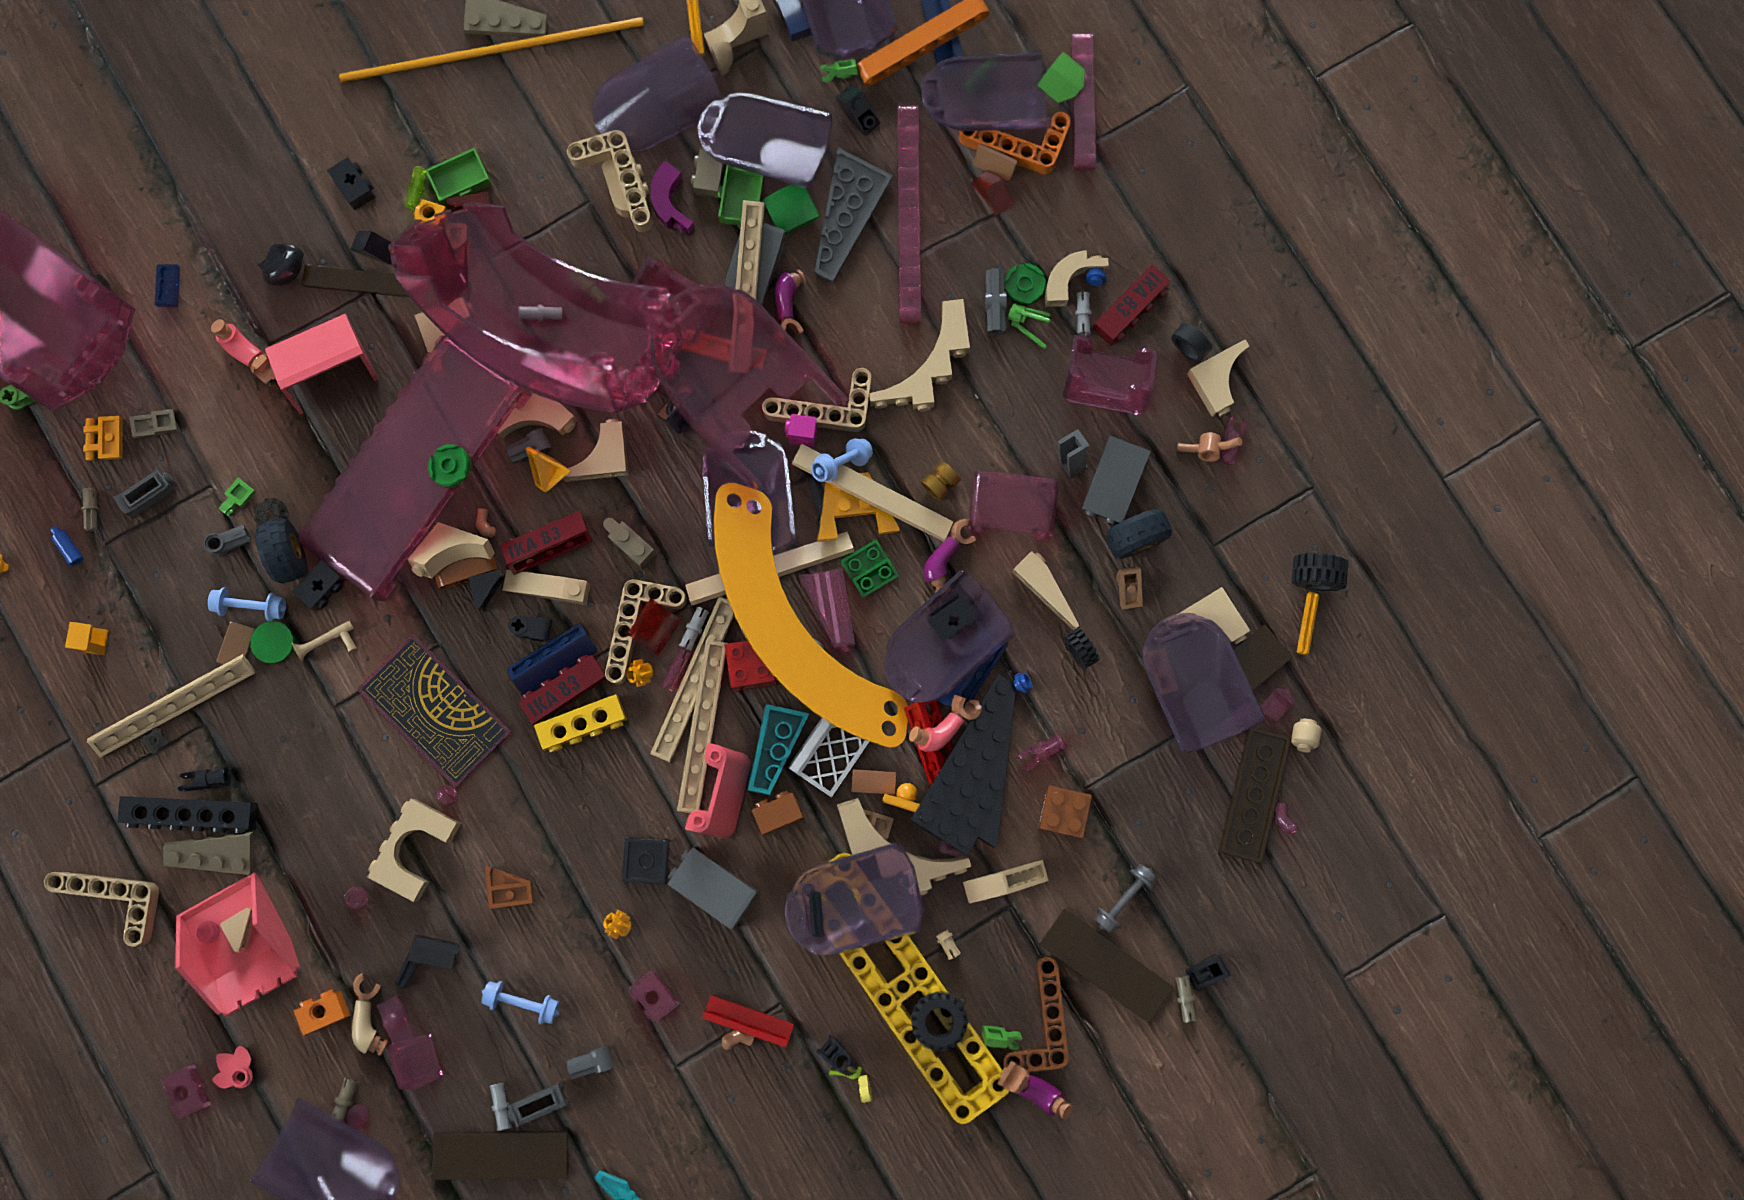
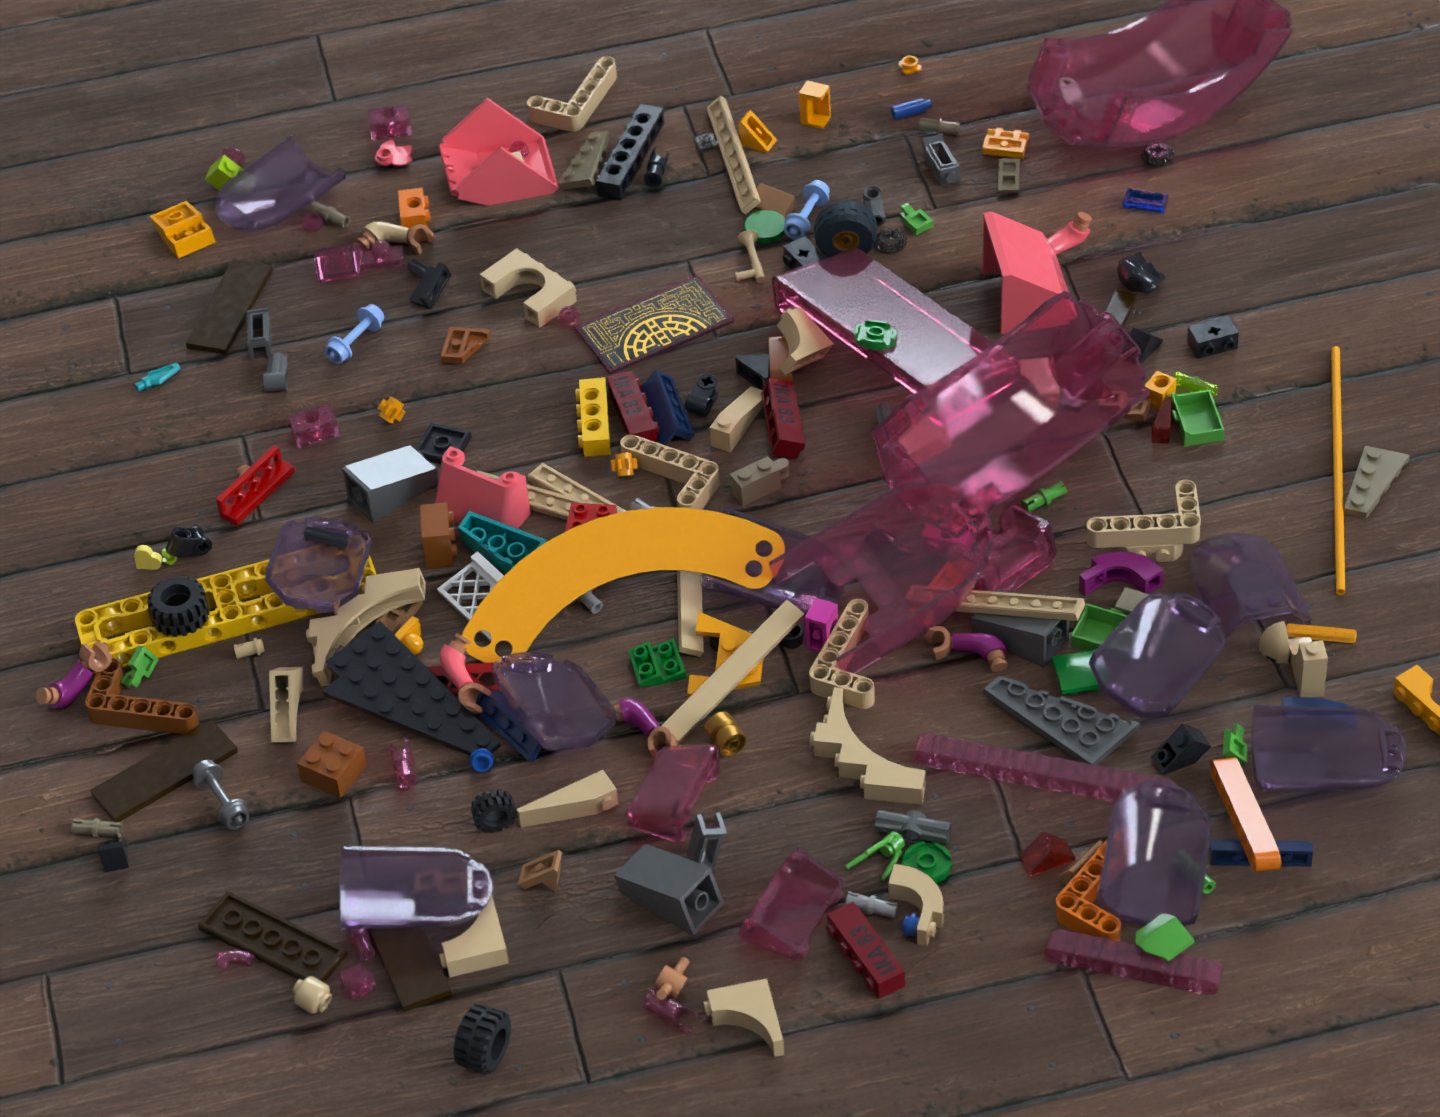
camera: 110 degrees right, 35 degrees down
(138, 689) = (754, 133): none -> light orange slope
(356, 897) = (504, 246): clear pink plate -> none
(482, 524) = (825, 381): nougat arm -> none
(500, 1106) = (282, 311): light grey pin -> none
(540, 313) = (1024, 448): light grey pin -> none
(545, 469) = (860, 423): light orange slope -> none
(608, 456) = (855, 479): tan arch -> none
(654, 627) = (663, 478): clear red tile -> none
(675, 670) = (614, 493): clear pink pin -> none
(826, 468) = (784, 674): light blue piece -> none
(831, 604) = (627, 621): clear pink slope -> none
(873, 782) = (438, 624): nougat slope -> none
(957, 606) = (573, 706): black brick -> none
(1138, 533) = (594, 881): black wheel -> none
(1191, 342) = (809, 988): black tyre -> none
(1307, 623) = (428, 1030): light orange axle -> none

